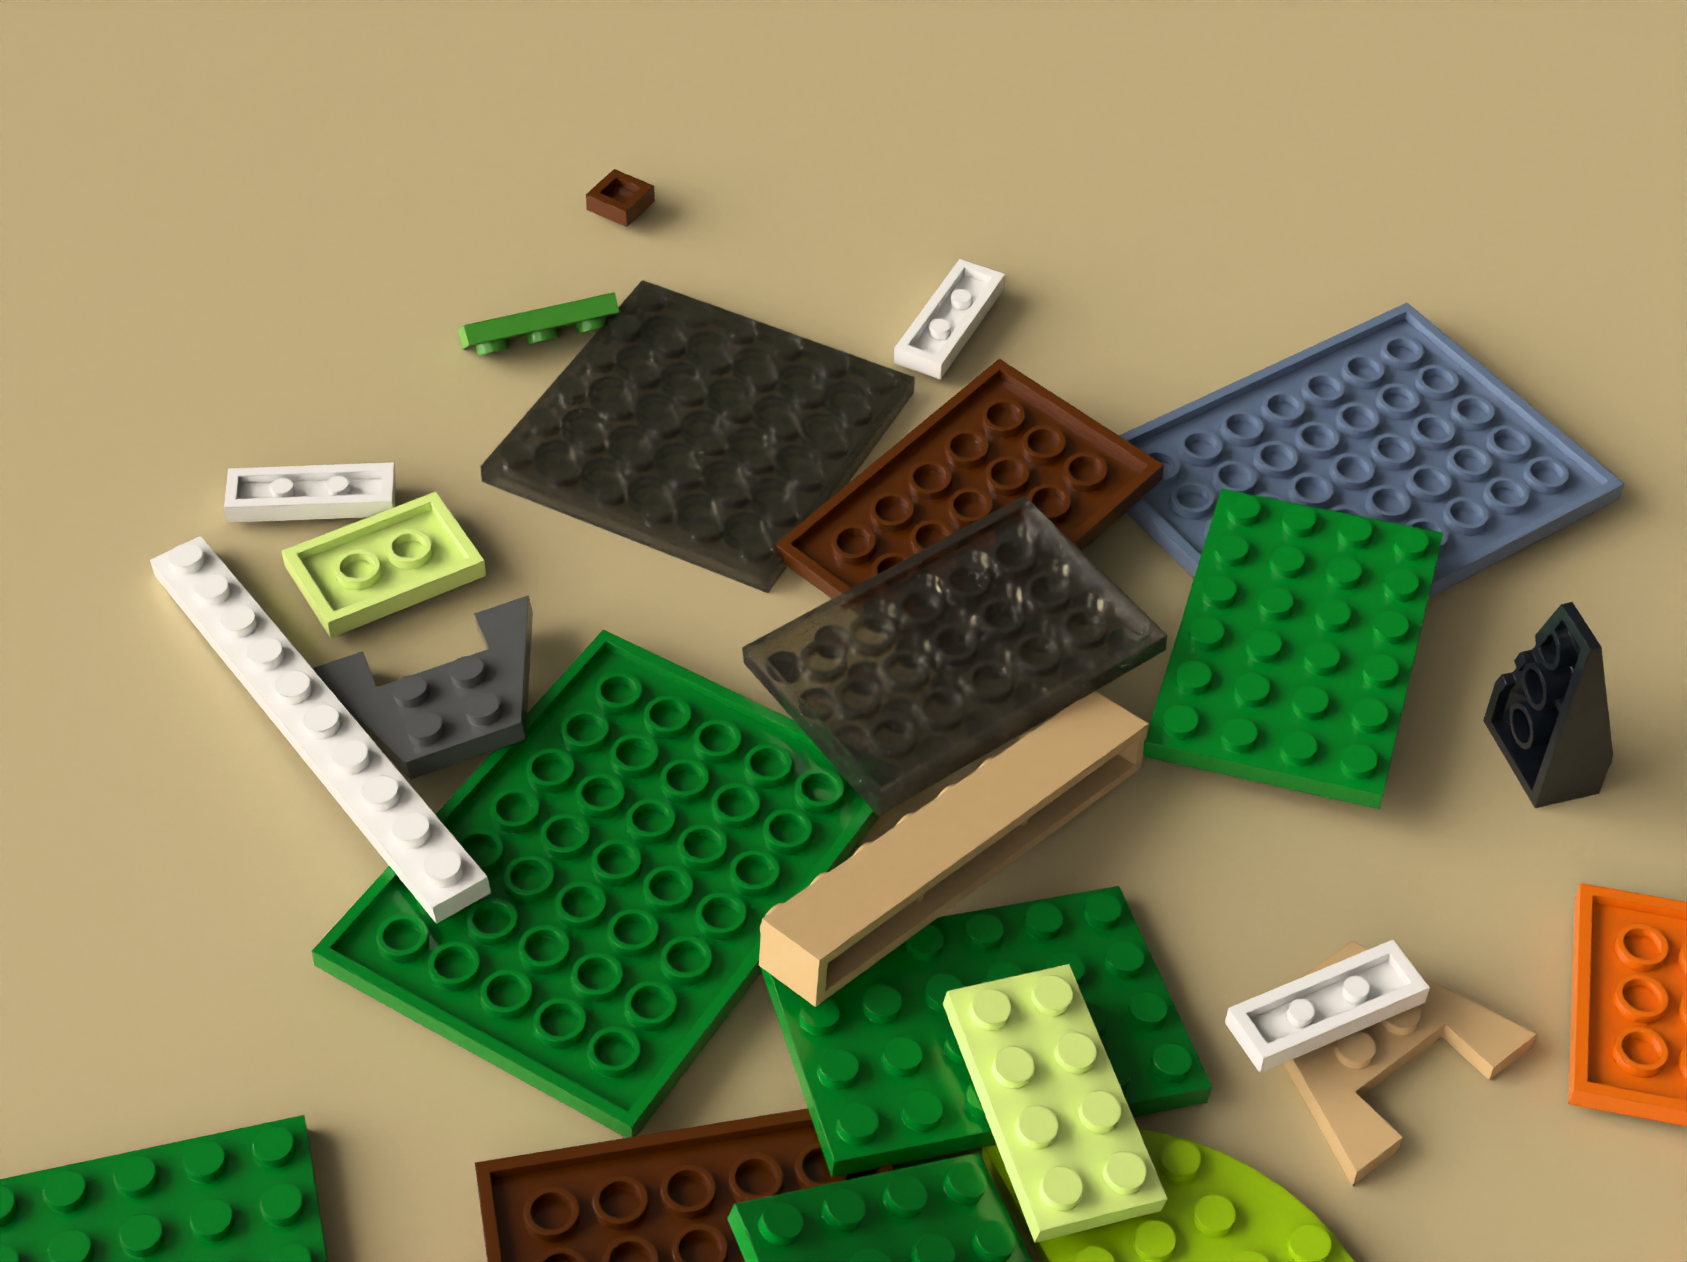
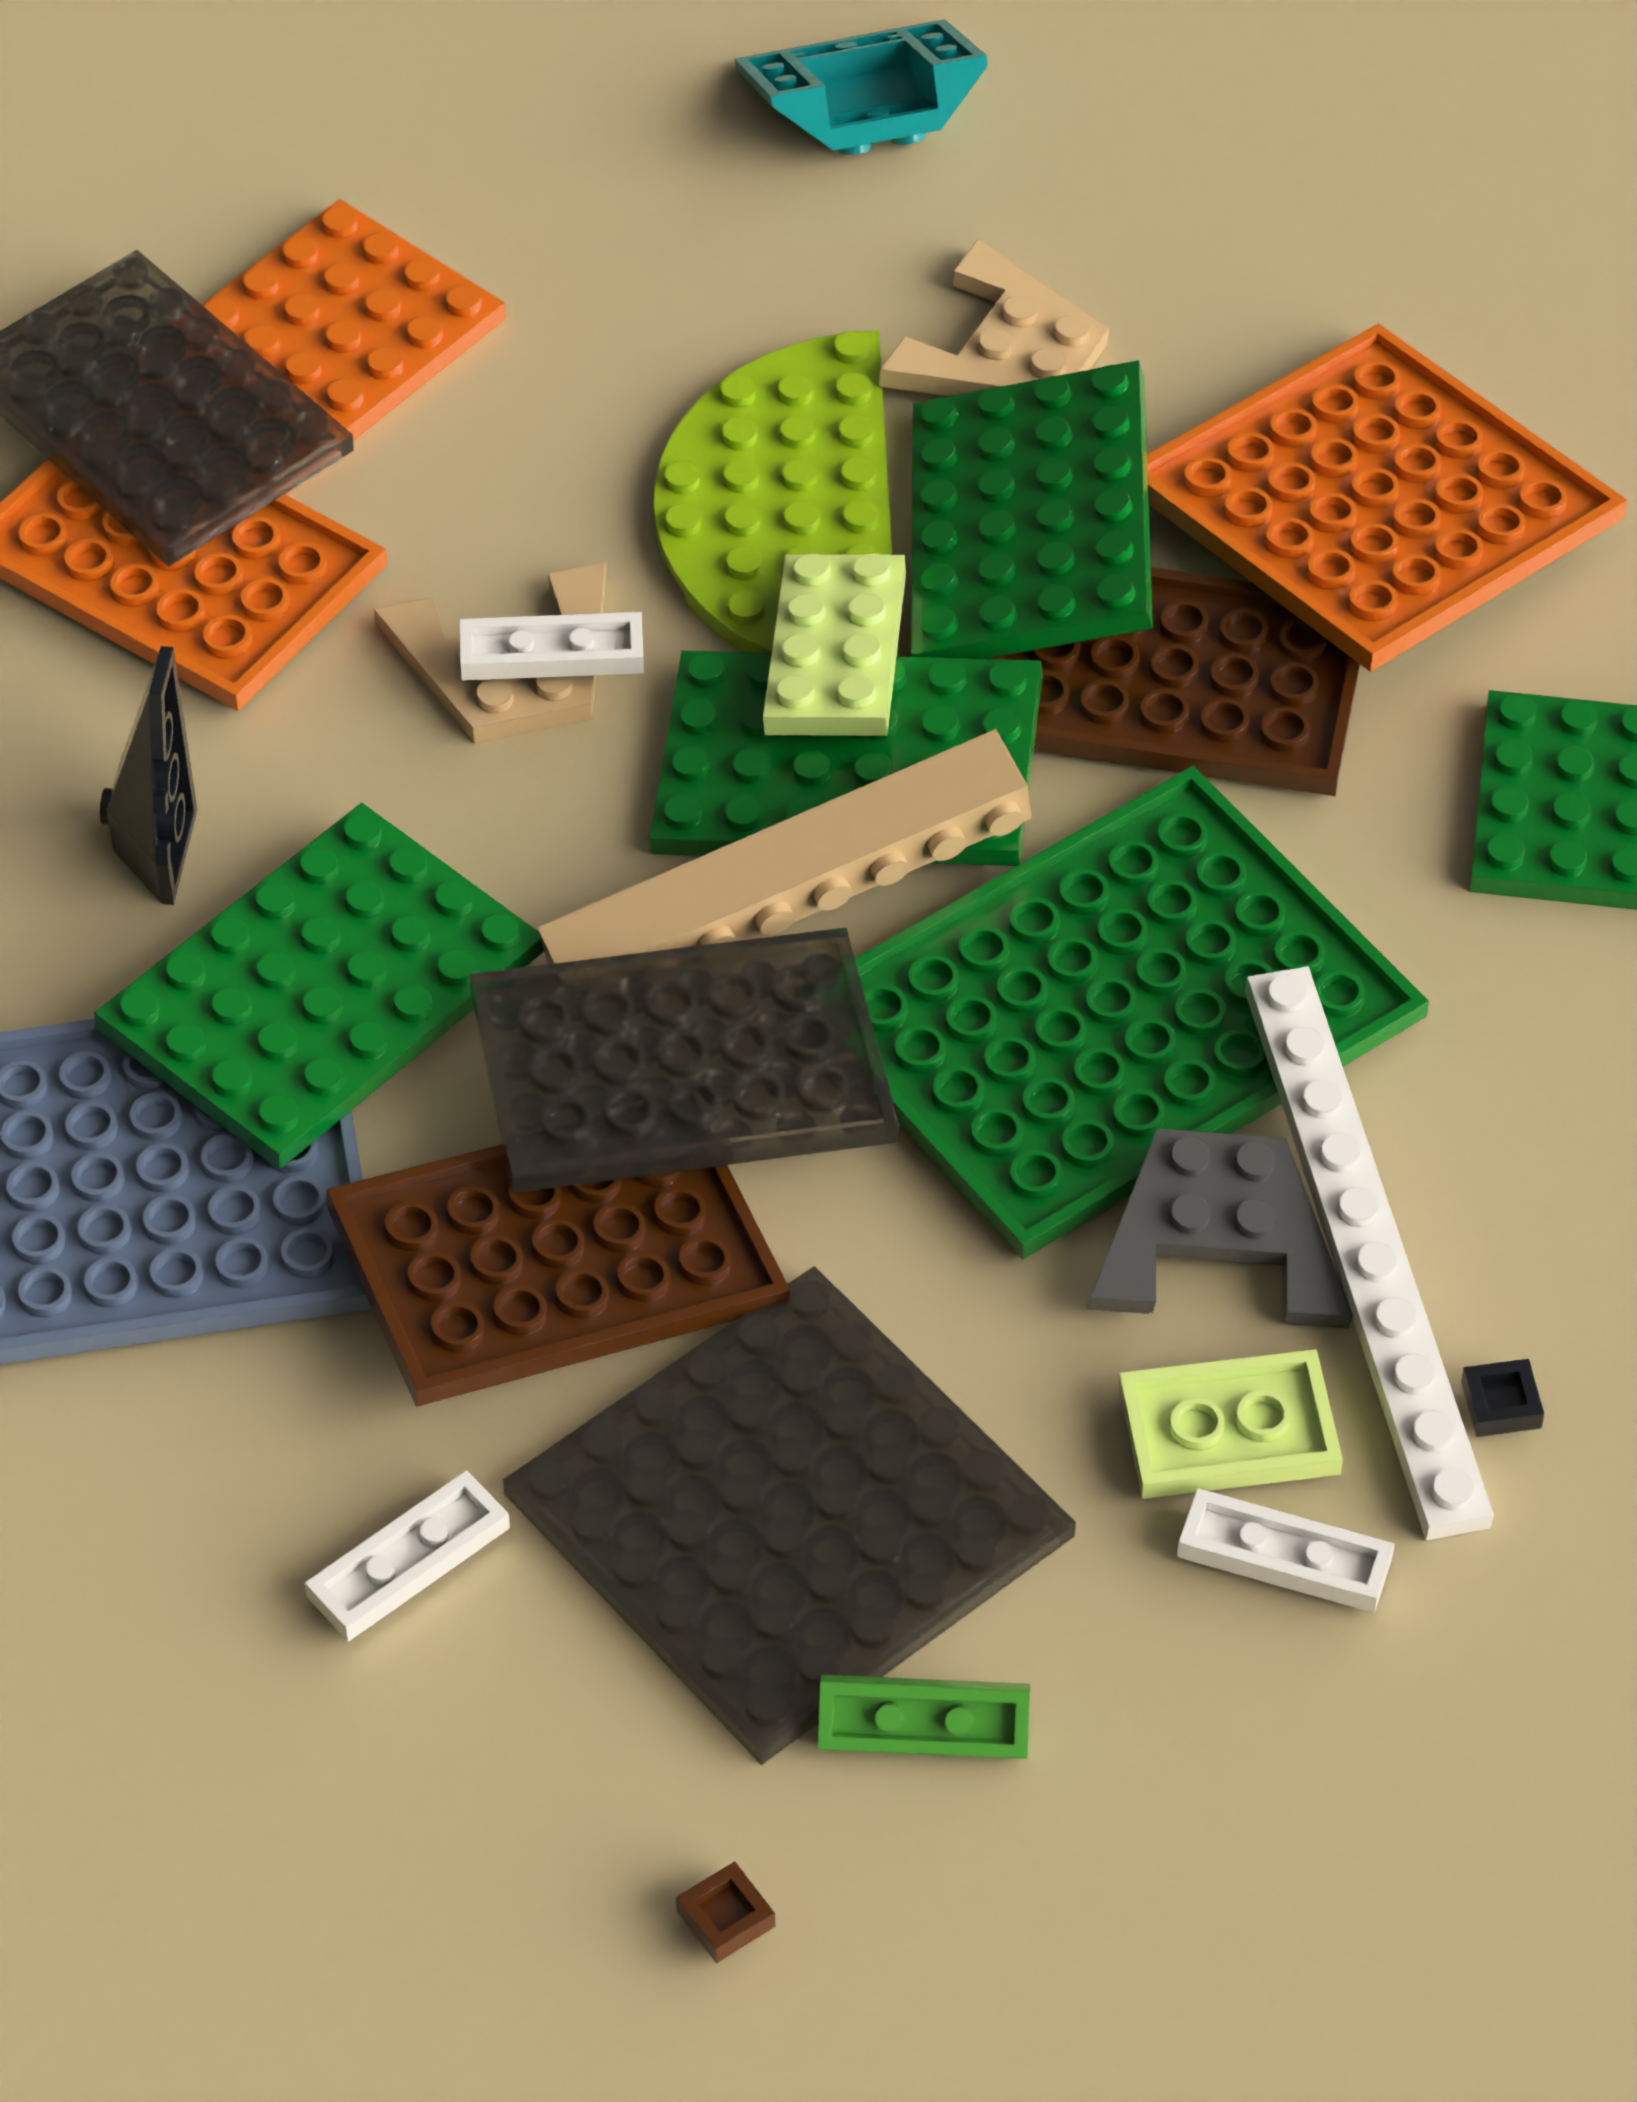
camera: 155 degrees left, 5 degrees up
(162, 645) = (1502, 1397): none -> black plate

